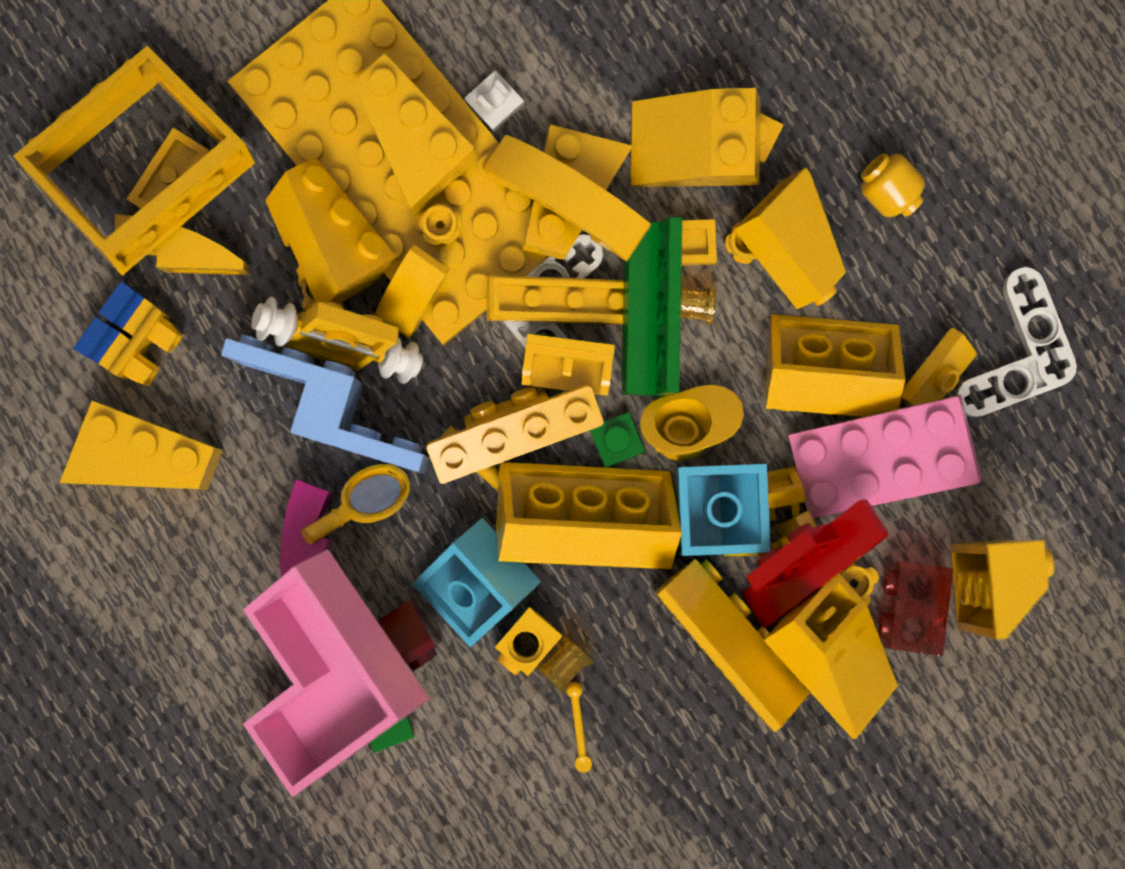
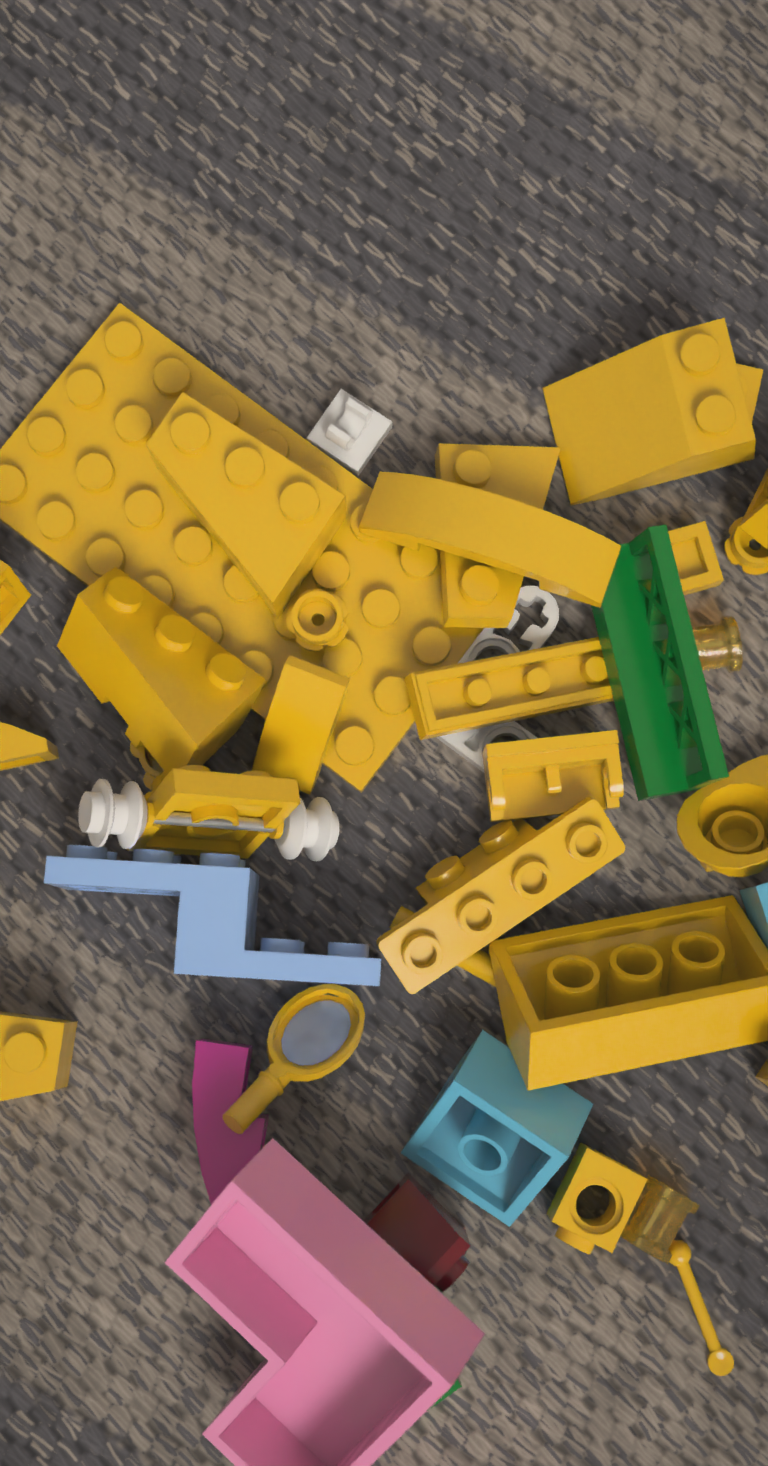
camera: 15 degrees left, 5 degrees down
(617, 440) = (647, 869): green plate -> none

